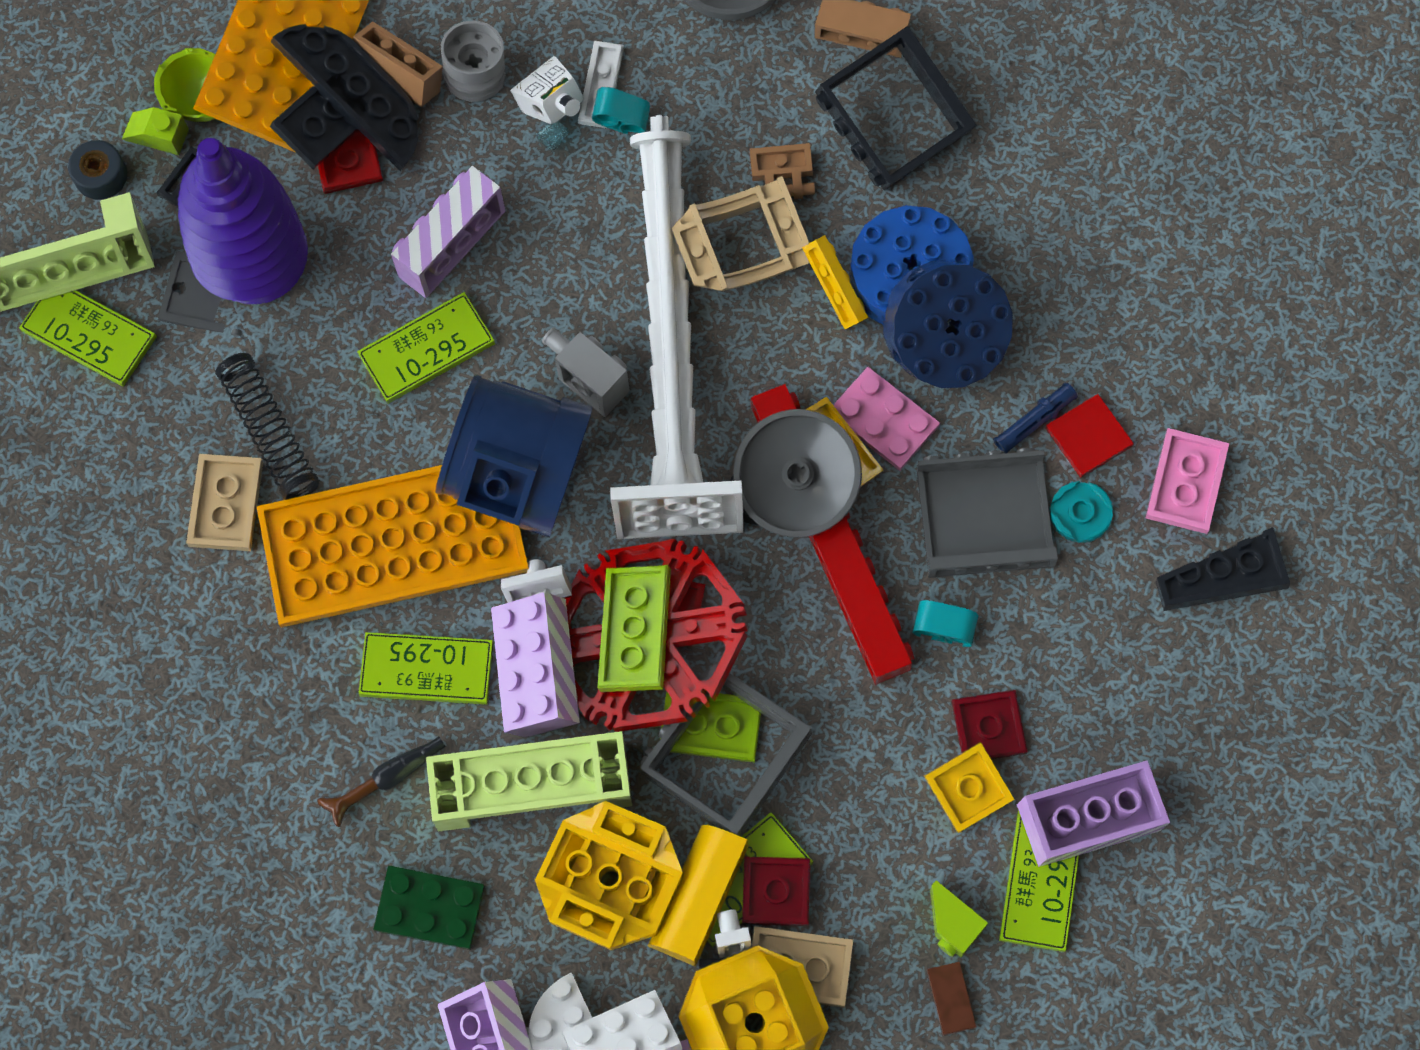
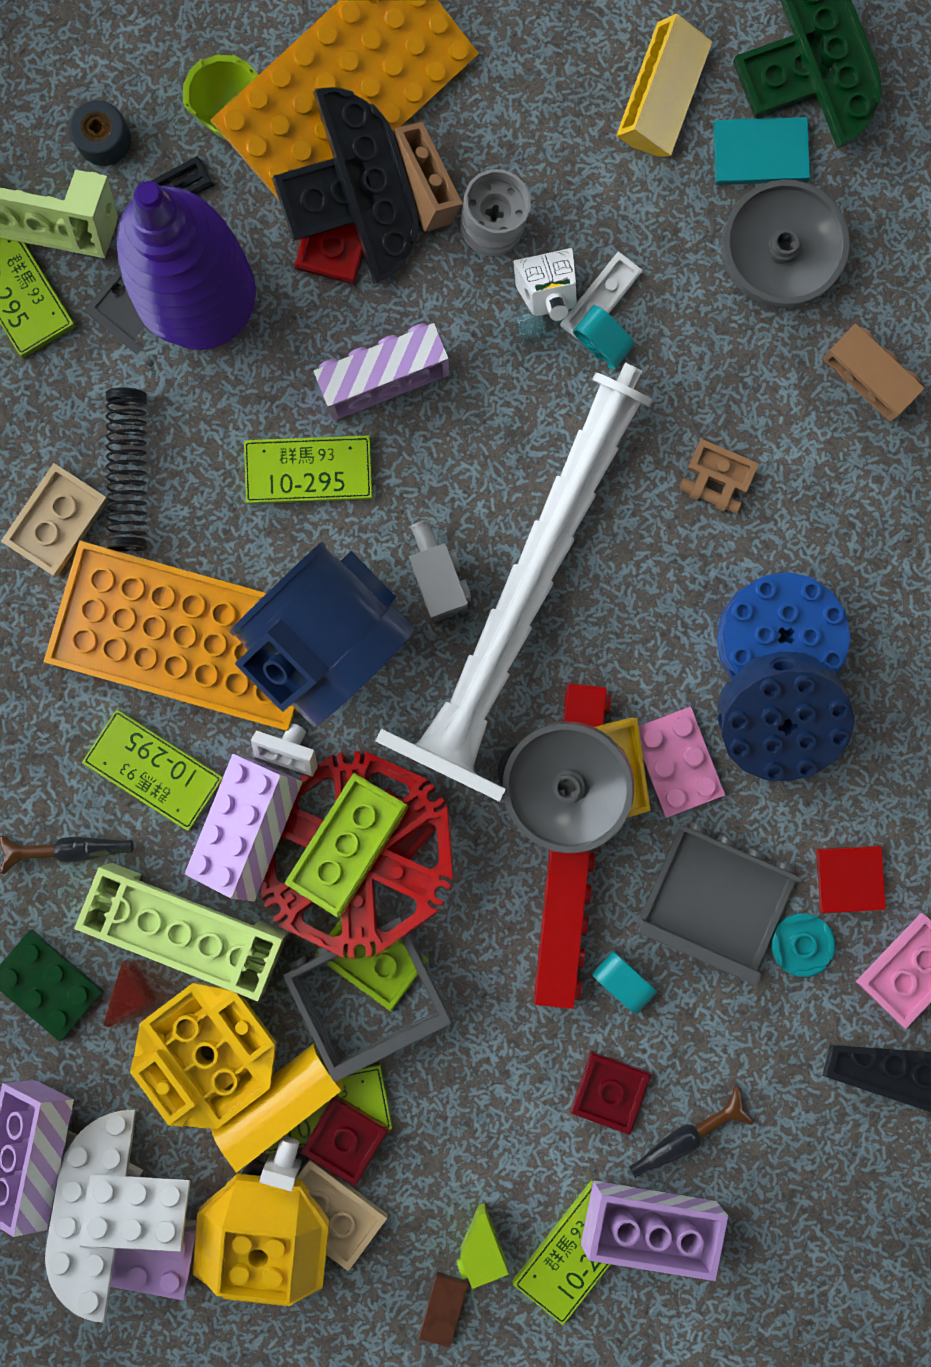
camera: 20 degrees right, 15 degrees up
(157, 130) = (174, 123): lime slope -> none
(512, 871) = (129, 993): none -> clear red slope
(782, 221) = (690, 533): tan wedge -> none
(835, 282) = (706, 614): yellow plate -> none
(931, 80) = (905, 469): black window -> none
(969, 787) = (561, 1141): yellow plate -> none
(1044, 411) = (825, 835): dark blue pin -> none
(1080, 725) = (688, 1137): none -> black piece

